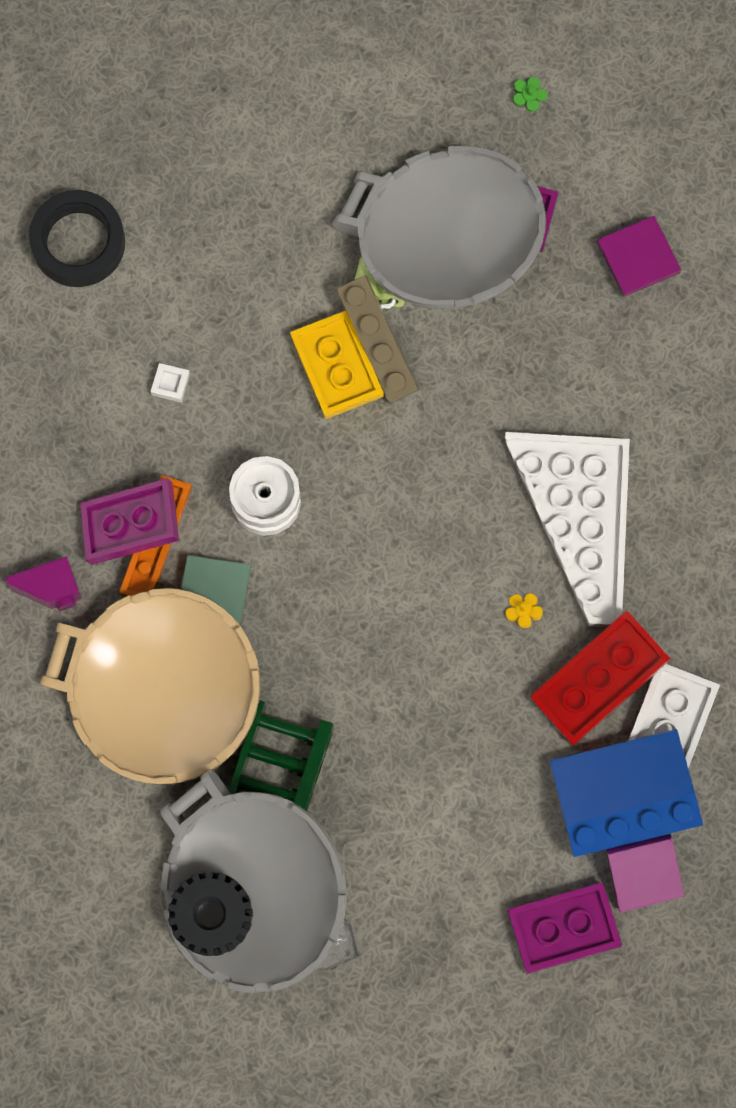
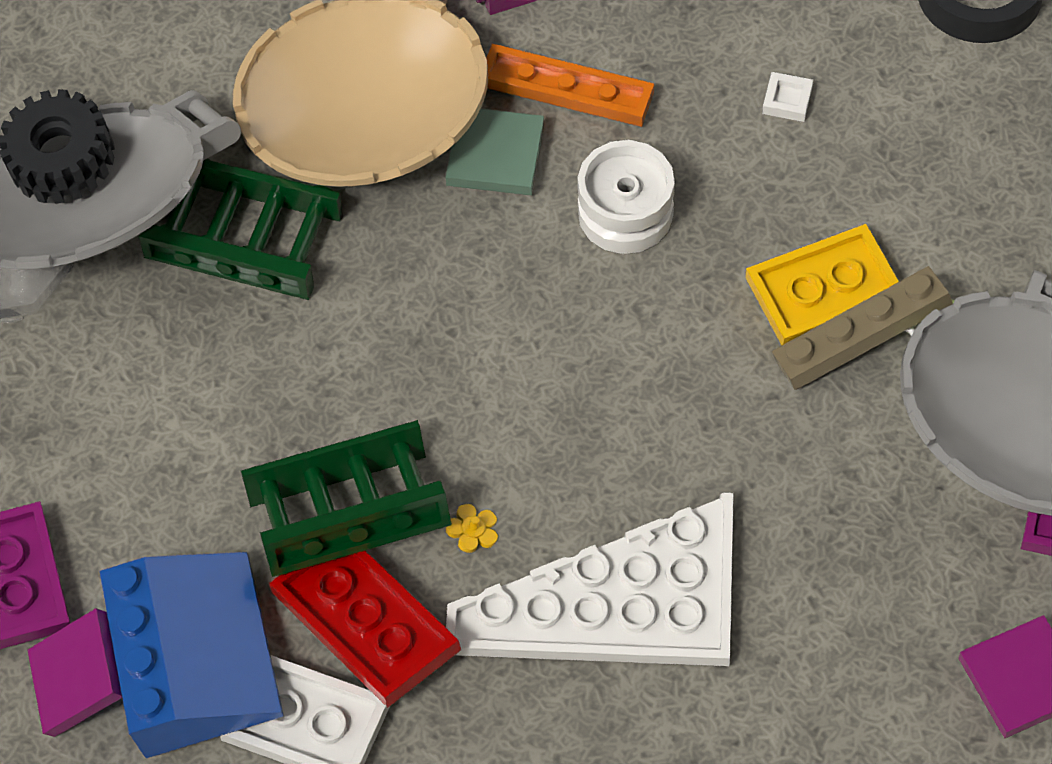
camera: 90 degrees right, 15 degrees down
(129, 521) = (585, 45): magenta plate -> none
(542, 697) = (356, 527): none -> dark green fence

